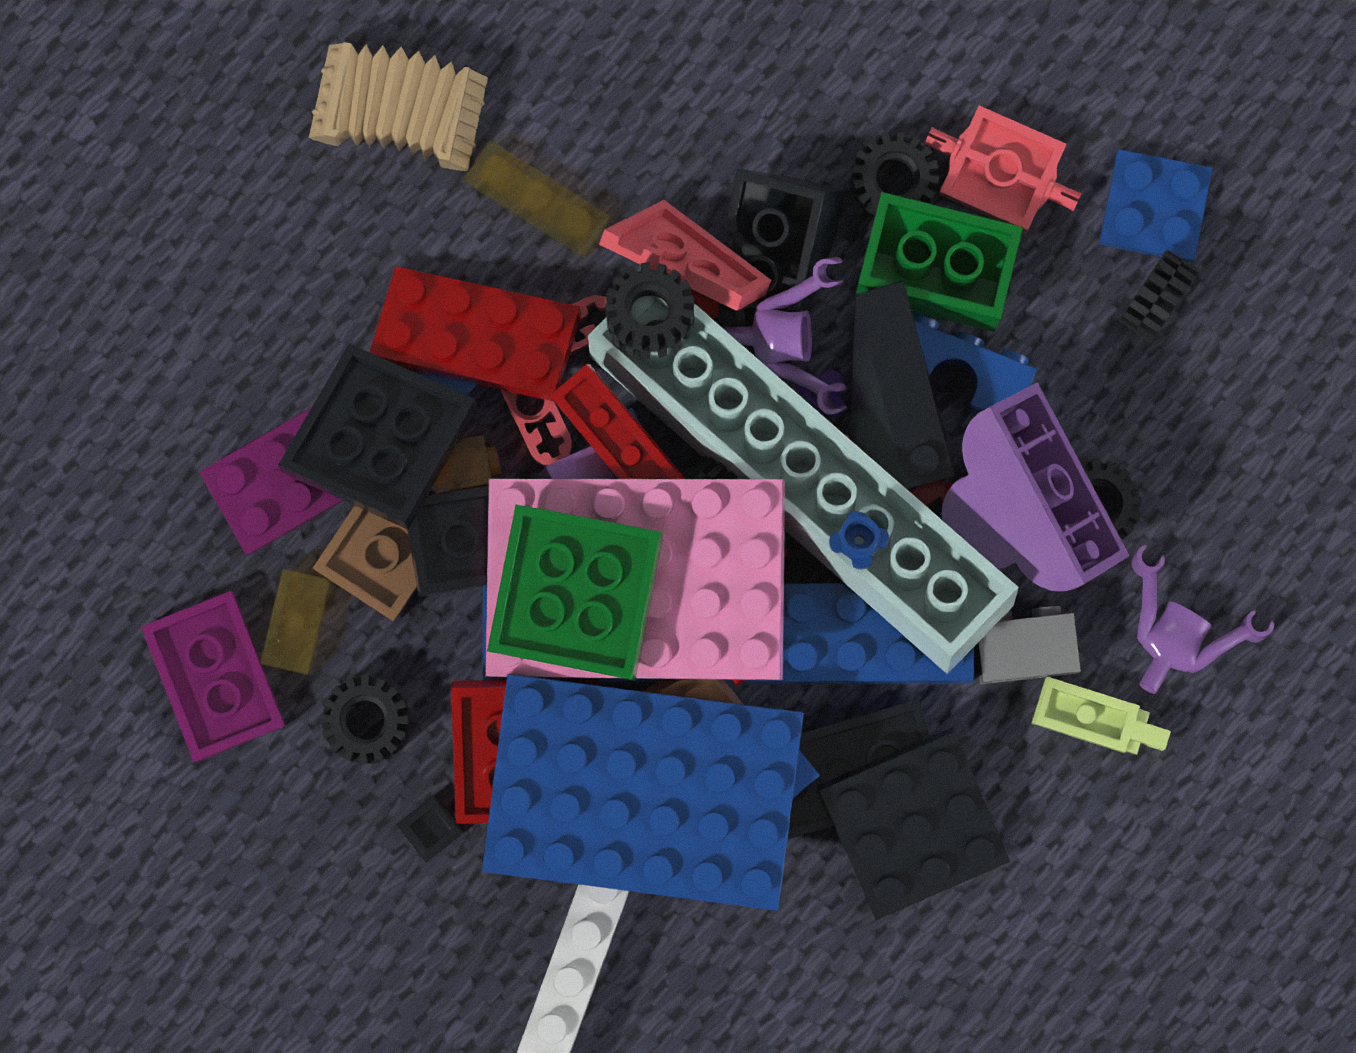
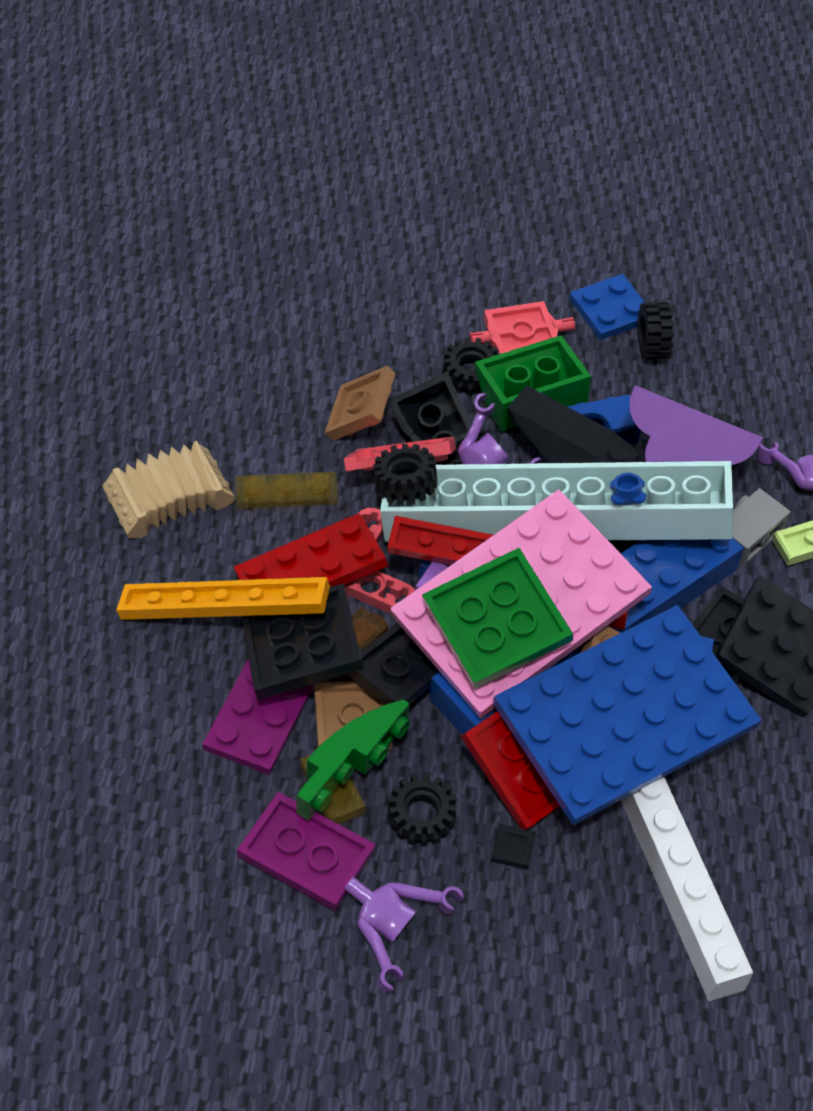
camera: 45 degrees left, 30 degrees down
(239, 813) = (387, 914): none -> medium lavender piece
(338, 316) = (224, 598): none -> light orange plate
(345, 606) = (354, 746): none -> green slope
(705, 146) = (360, 403): none -> medium nougat plate

